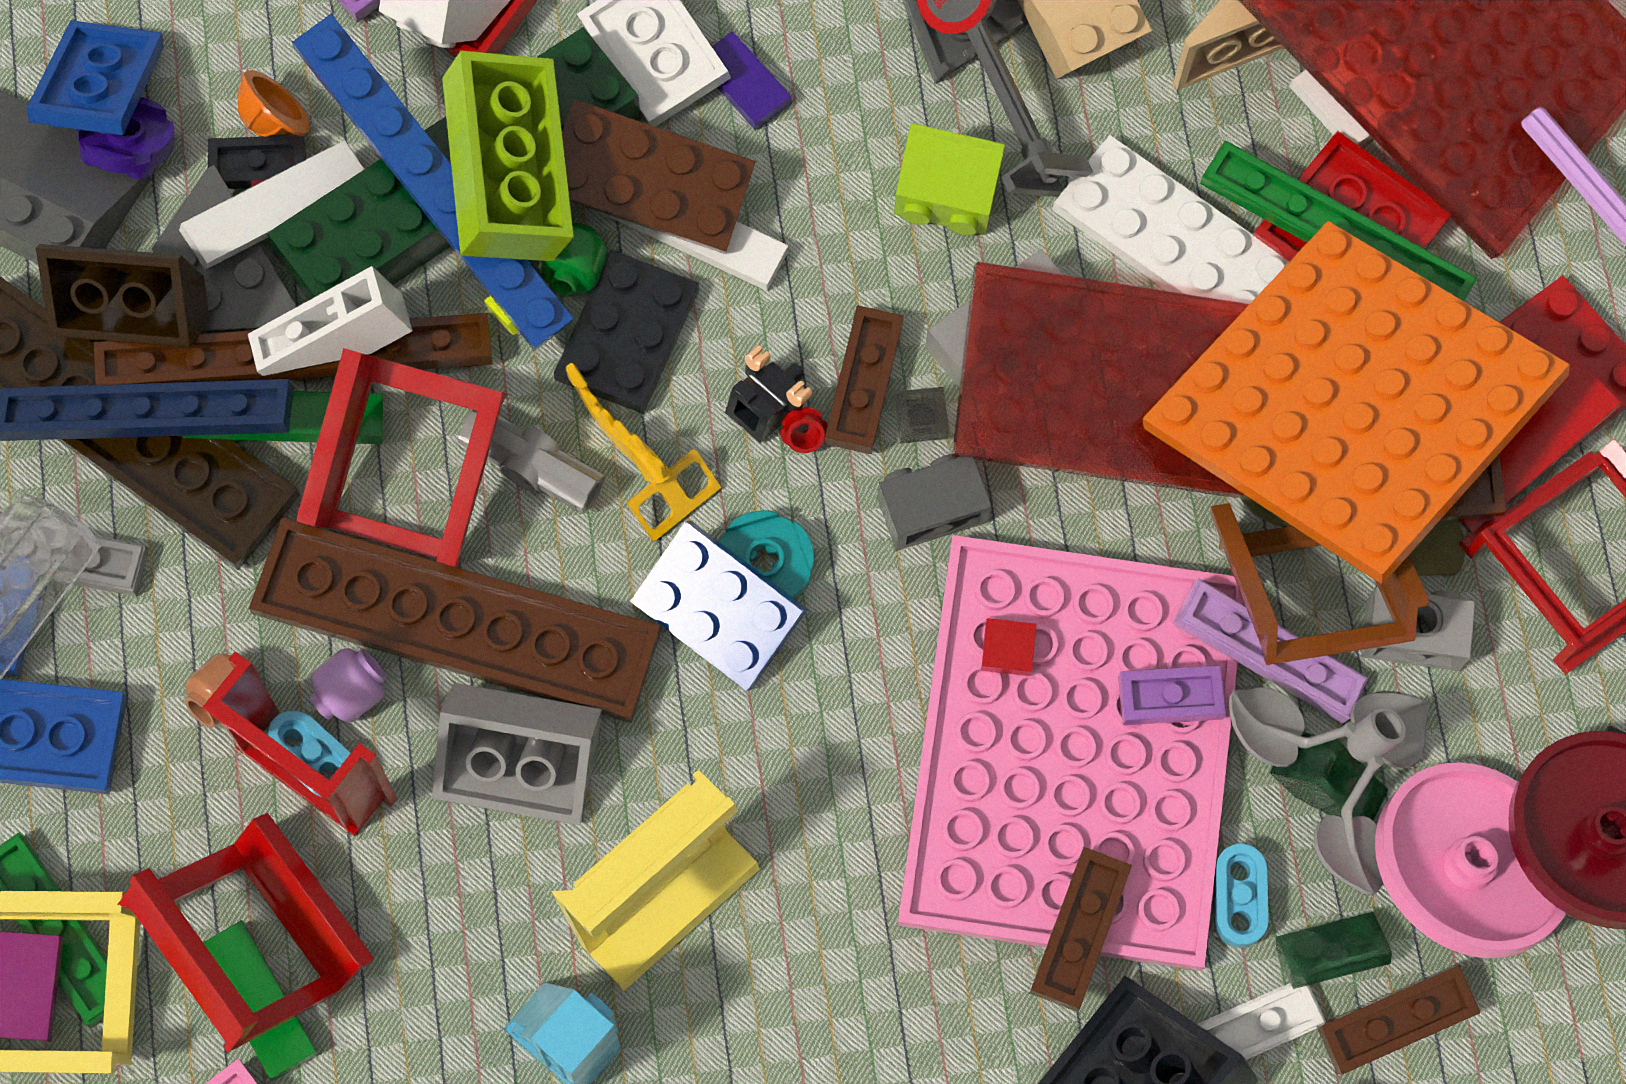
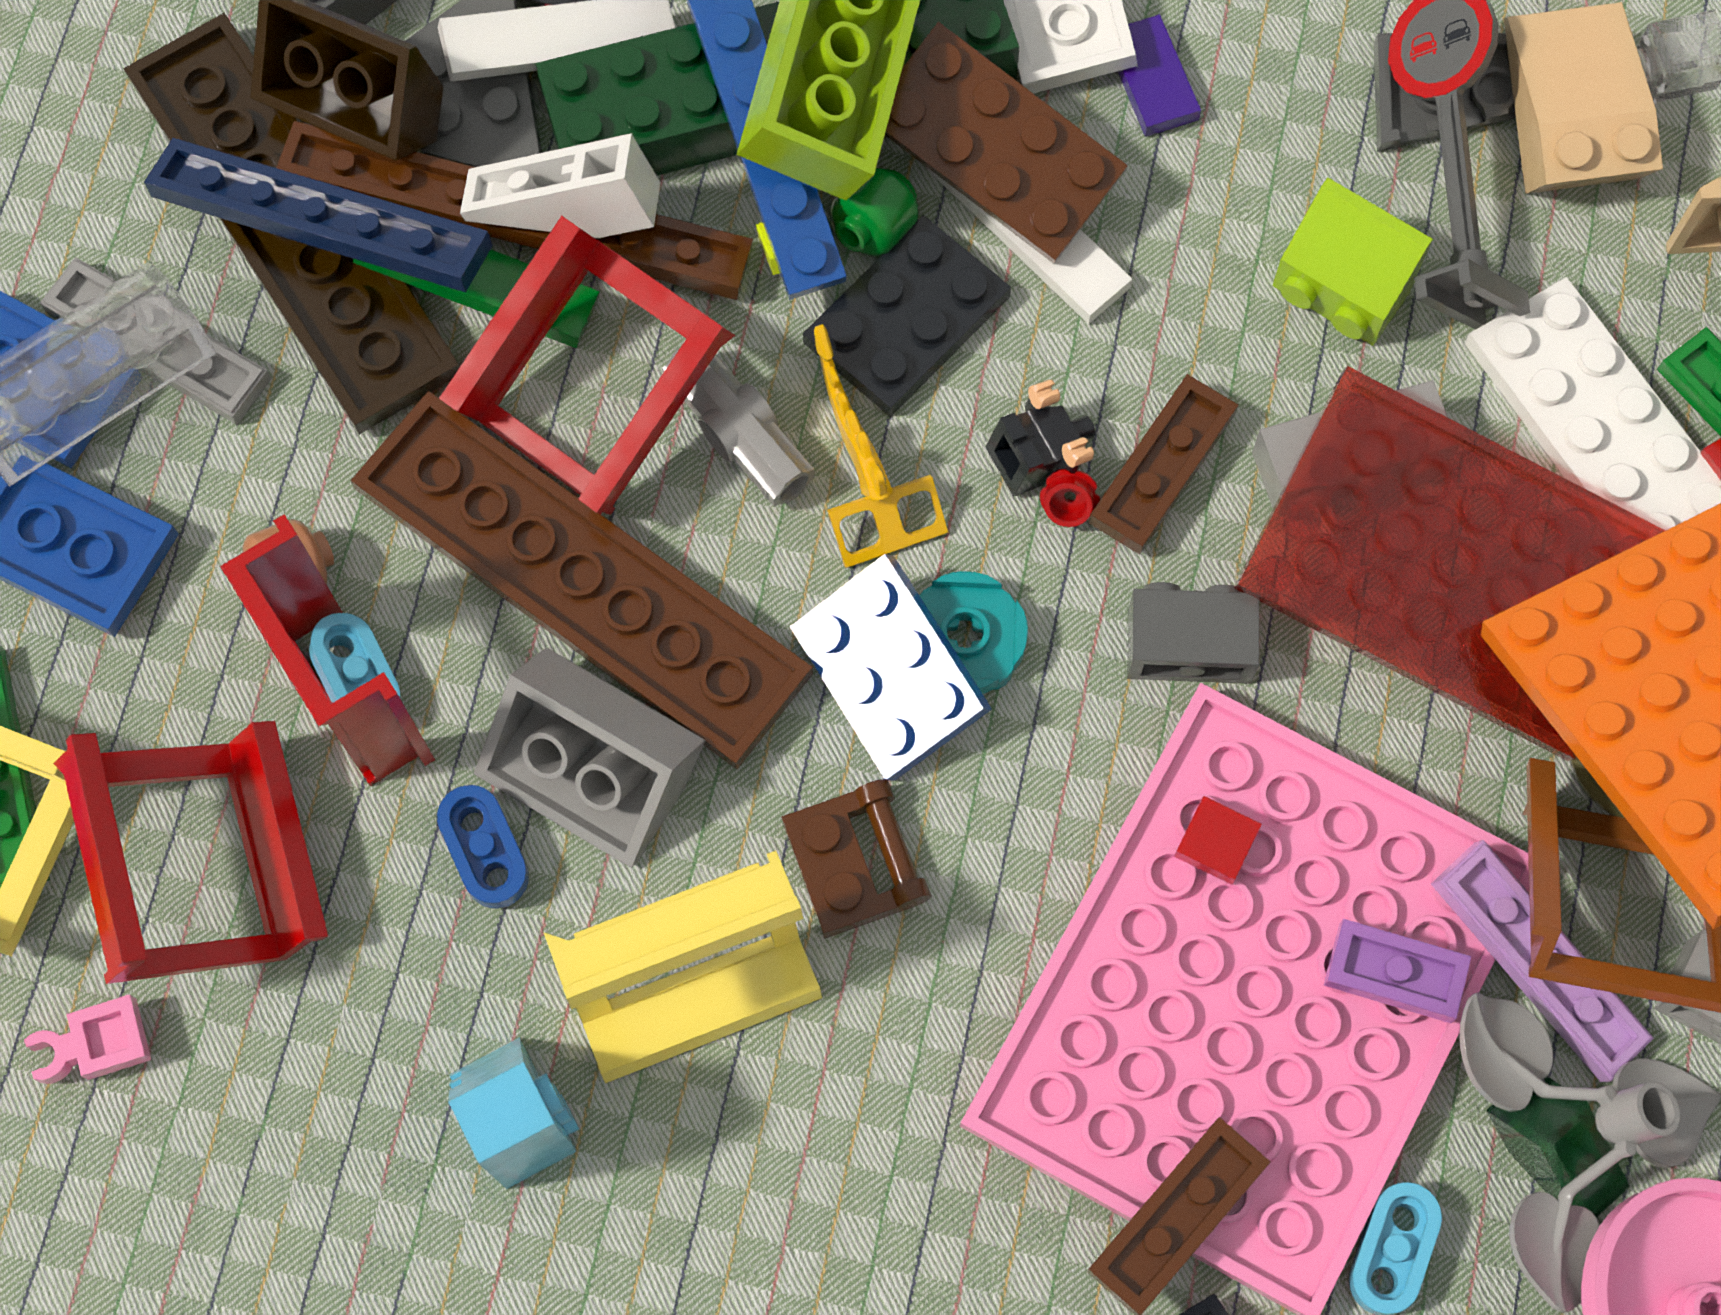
camera: 25 degrees right, 0 degrees up
(247, 969) = (182, 913): green tile -> none
(347, 685) = (426, 607): lavender head -> none
(464, 850) = (483, 849): none -> blue plate
(734, 768) = (835, 865): none -> reddish brown plate
(921, 415) = (1216, 528): clear smoke plate -> none

